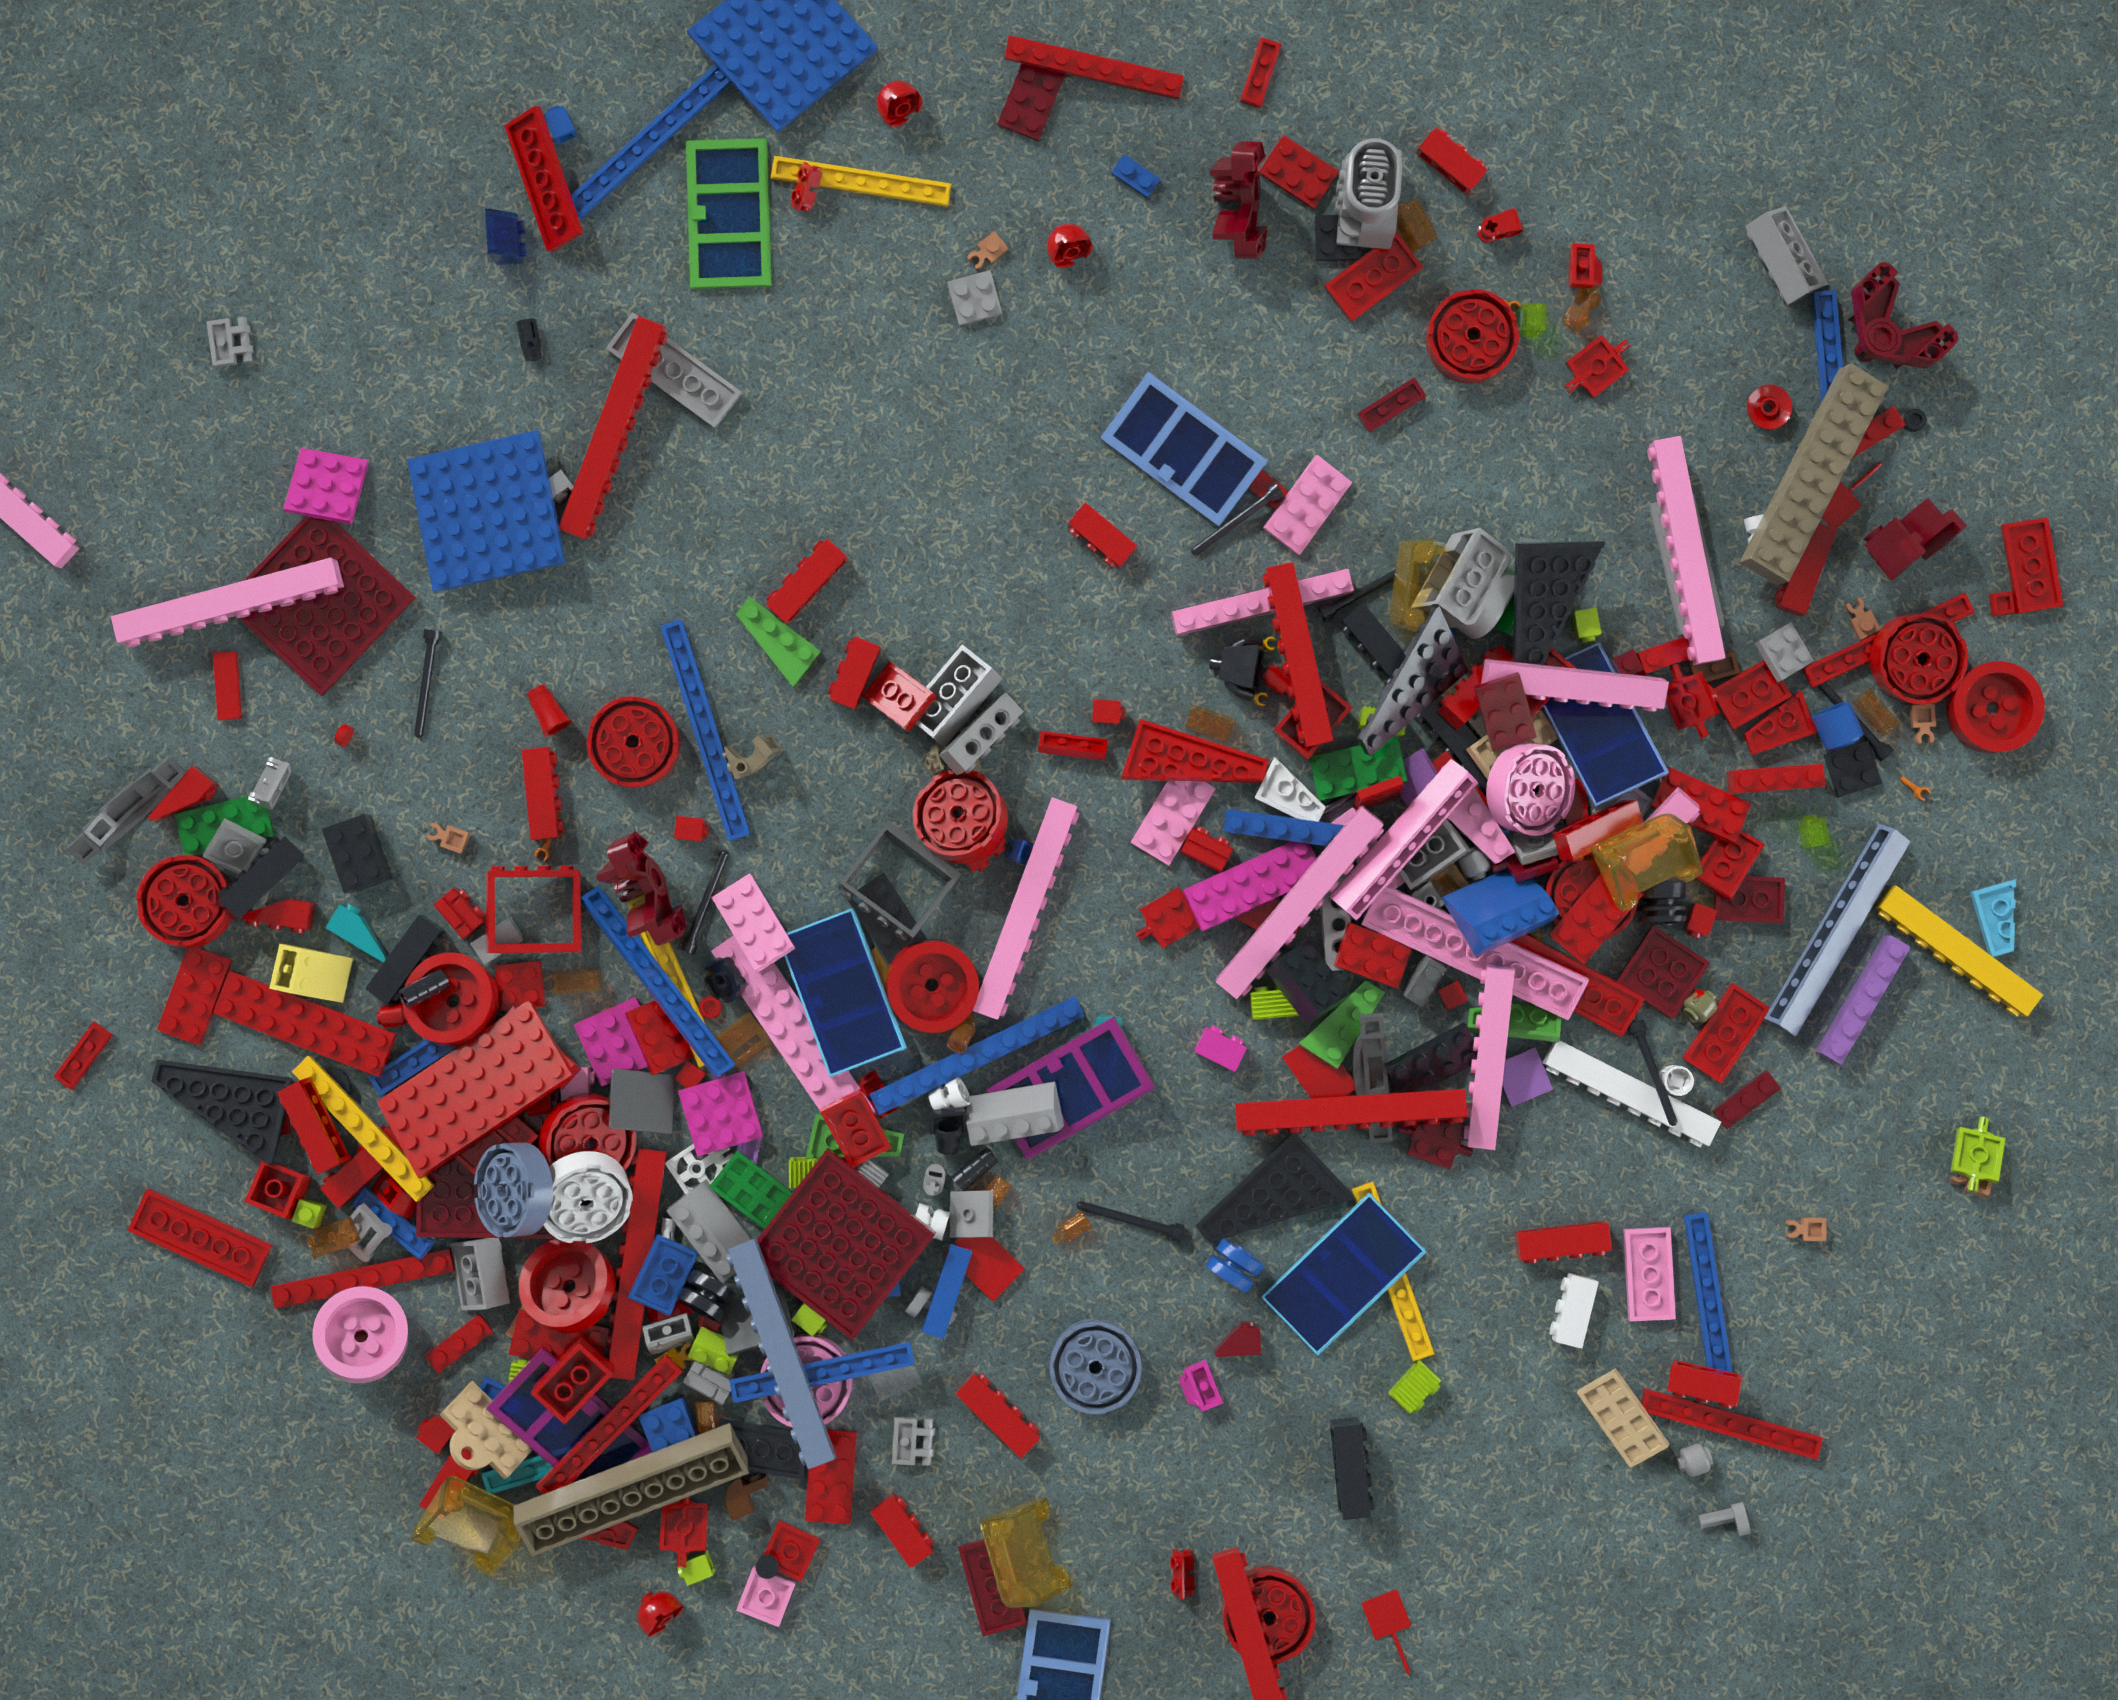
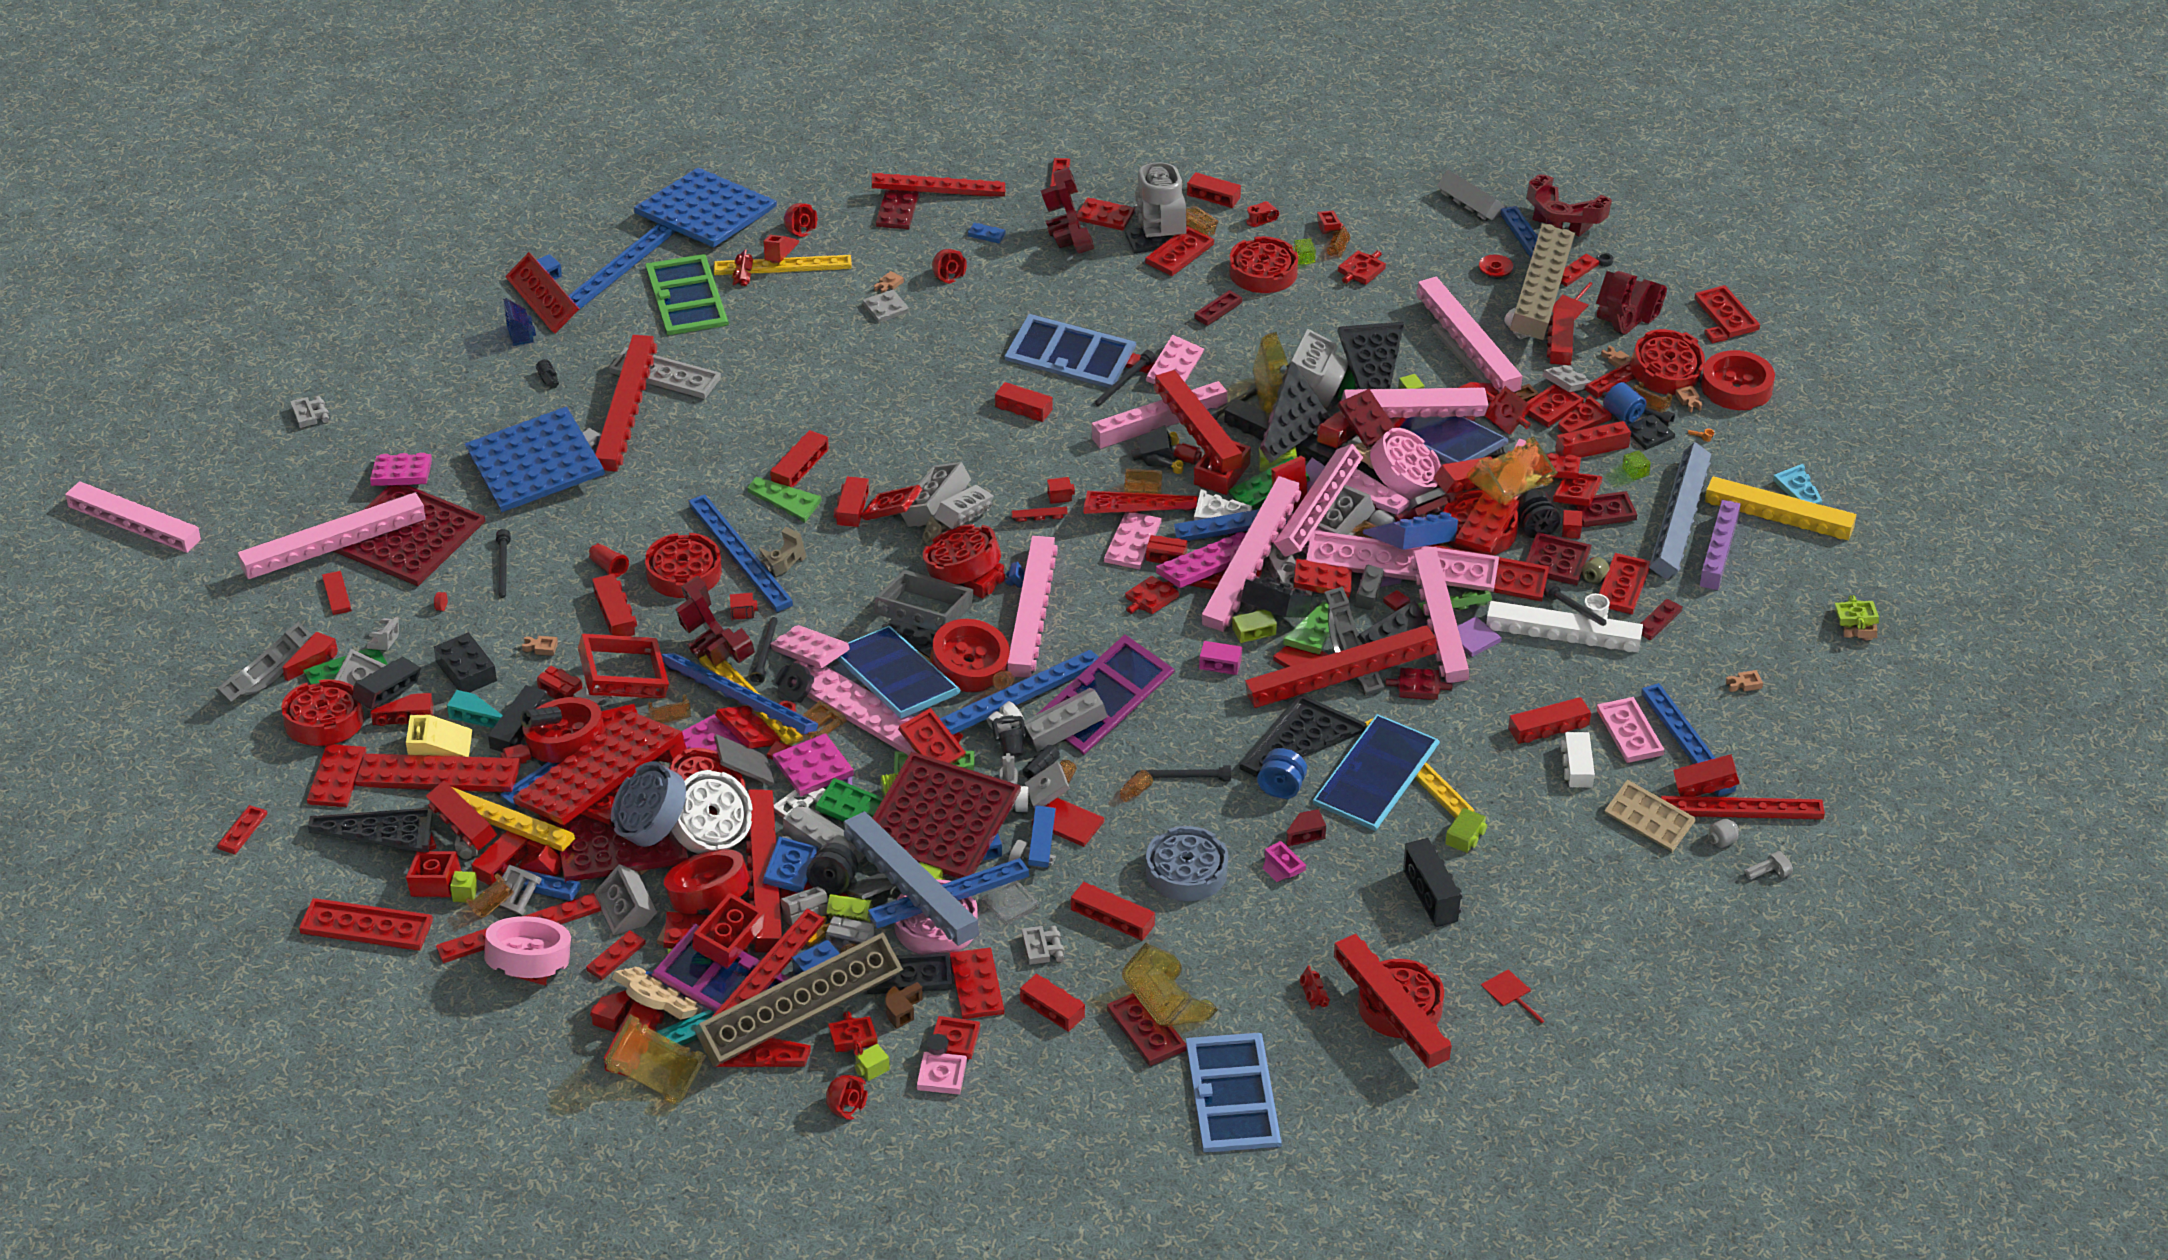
camera: 10 degrees left, 45 degrees down
(861, 156) = (778, 247): none -> red slope

